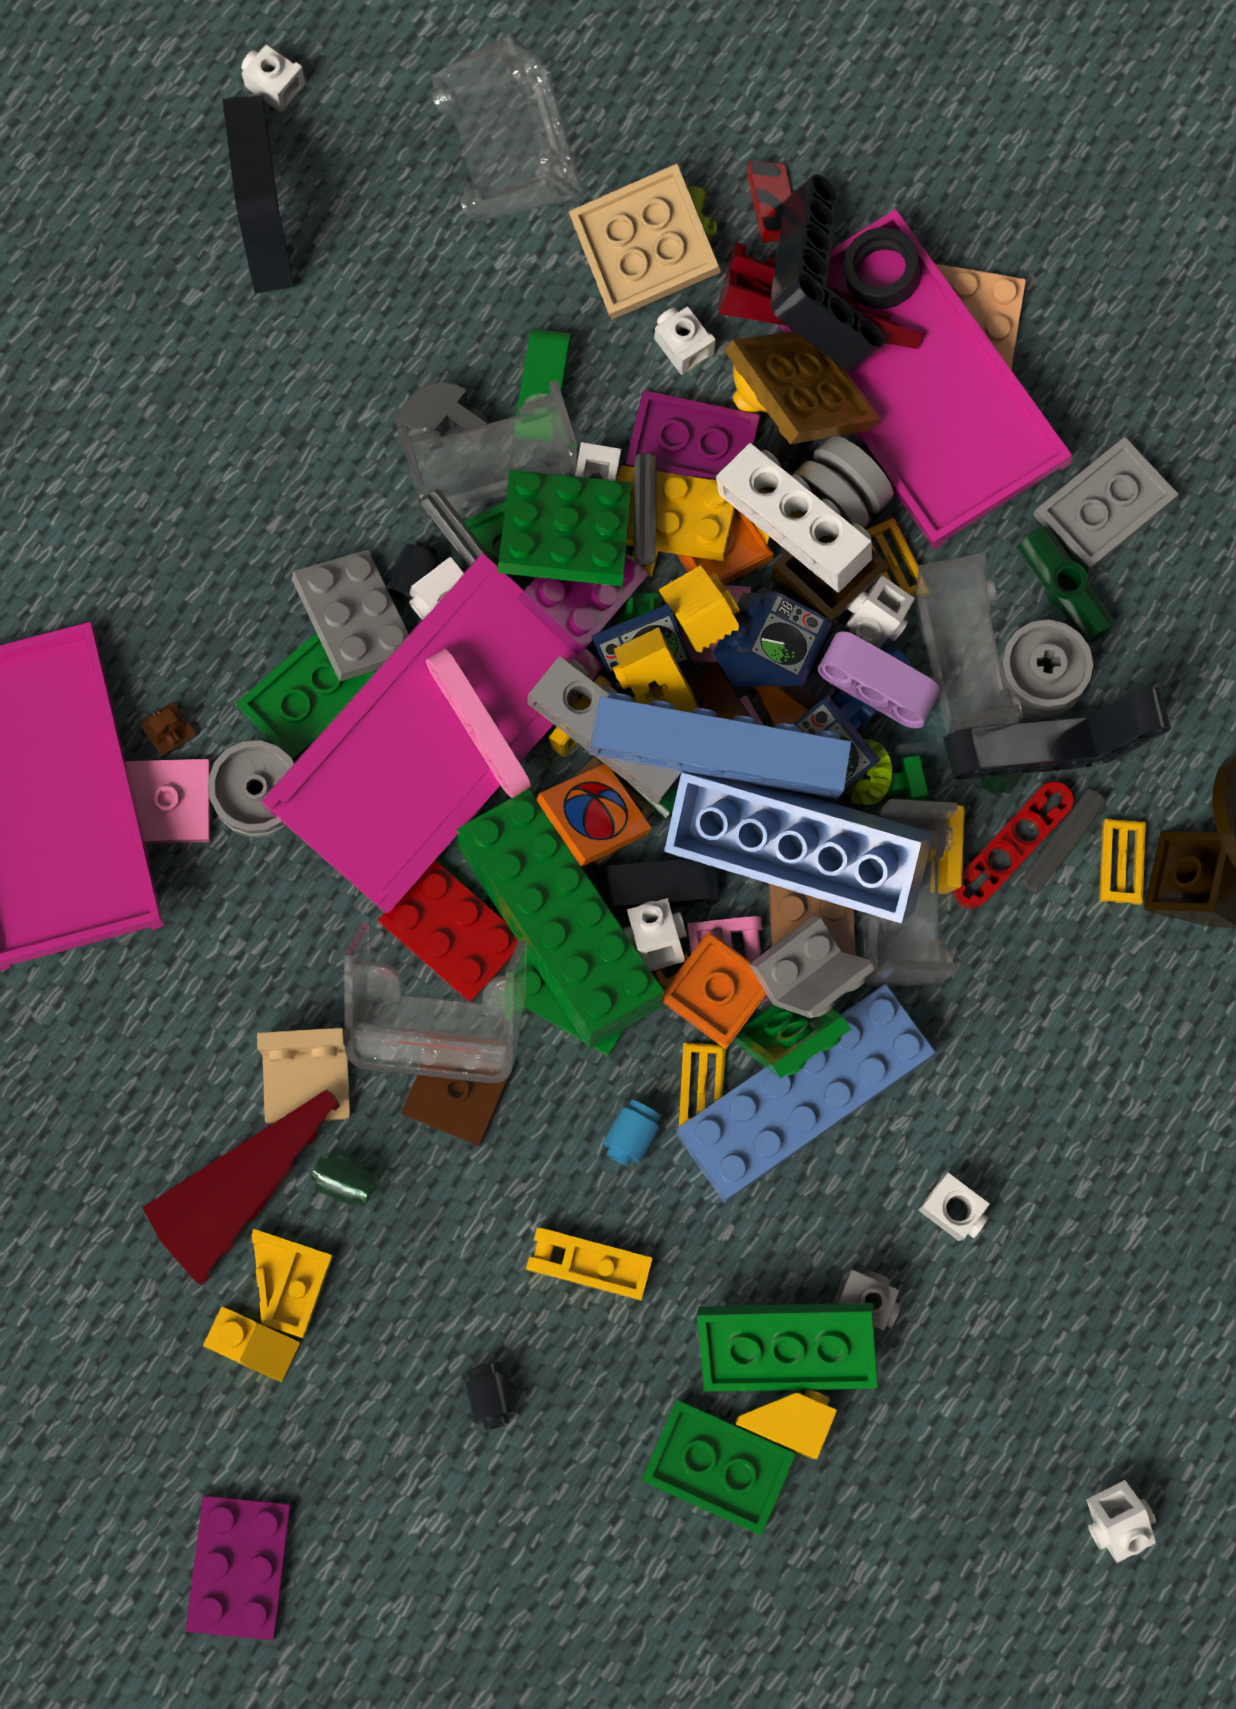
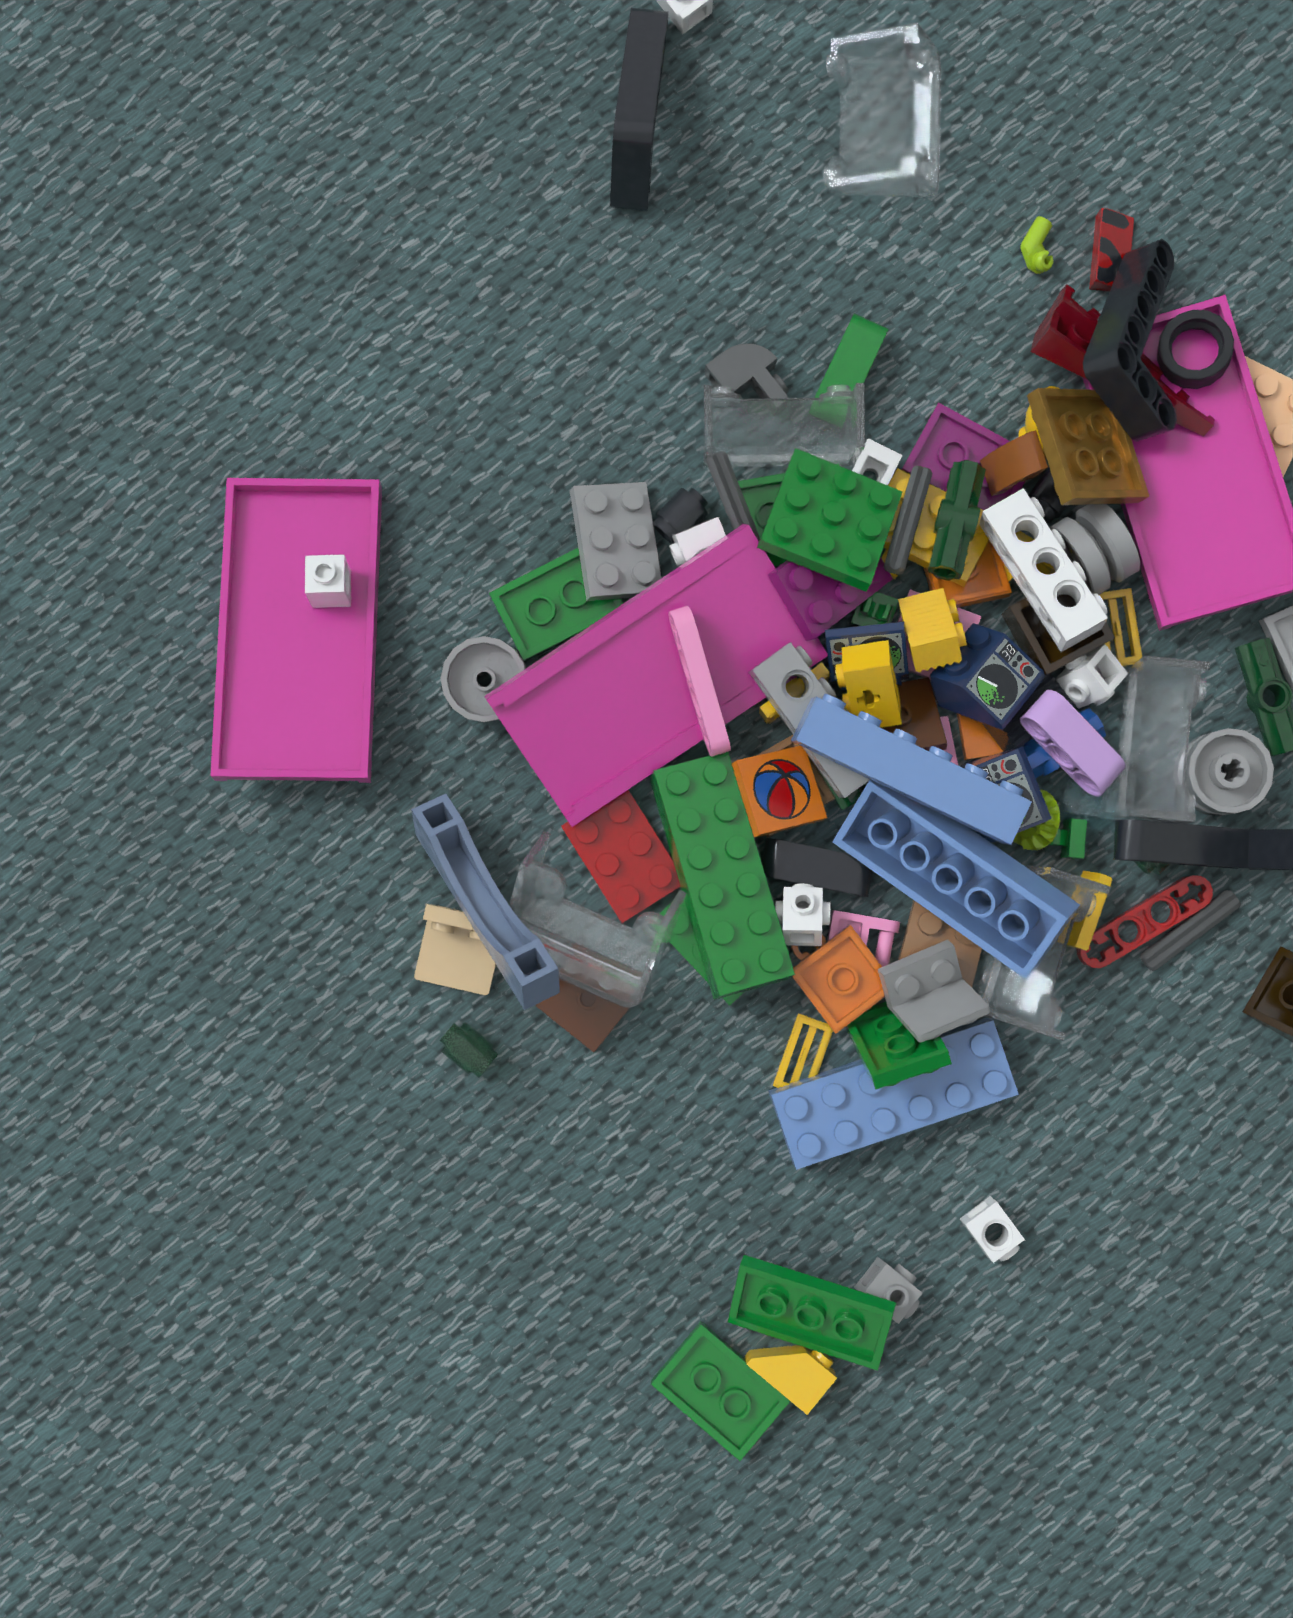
camera: 15 degrees right, 10 degrees up
(64, 733) = (327, 581): none -> white brick
(168, 729) = (422, 597): reddish brown brick -> none
(172, 799) = (409, 663): bright pink plate -> none
(213, 1204) = (346, 1041): dark red wedge -> none
(238, 1568) = (289, 1352): magenta plate -> none
(251, 1344) = (350, 1167): yellow slope -> none
(288, 1282) = (396, 1123): yellow wing -> none
(362, 1043) = (508, 941): none -> sand blue arch
(490, 1395) = (542, 1273): black brick -> none
(591, 1264) = (661, 1185): yellow plate -> none
(631, 1133) = (729, 1082): dark azure brick -> none
(644, 241) = (982, 259): tan plate -> none
(687, 350) = (988, 375): white brick -> none
(694, 495) = (956, 520): none -> dark green piece
(734, 422) = (1014, 463): none -> dark orange slope
(1106, 859) = (1223, 959): yellow tile -> none
(1121, 1521) = (1052, 1543): white brick -> none

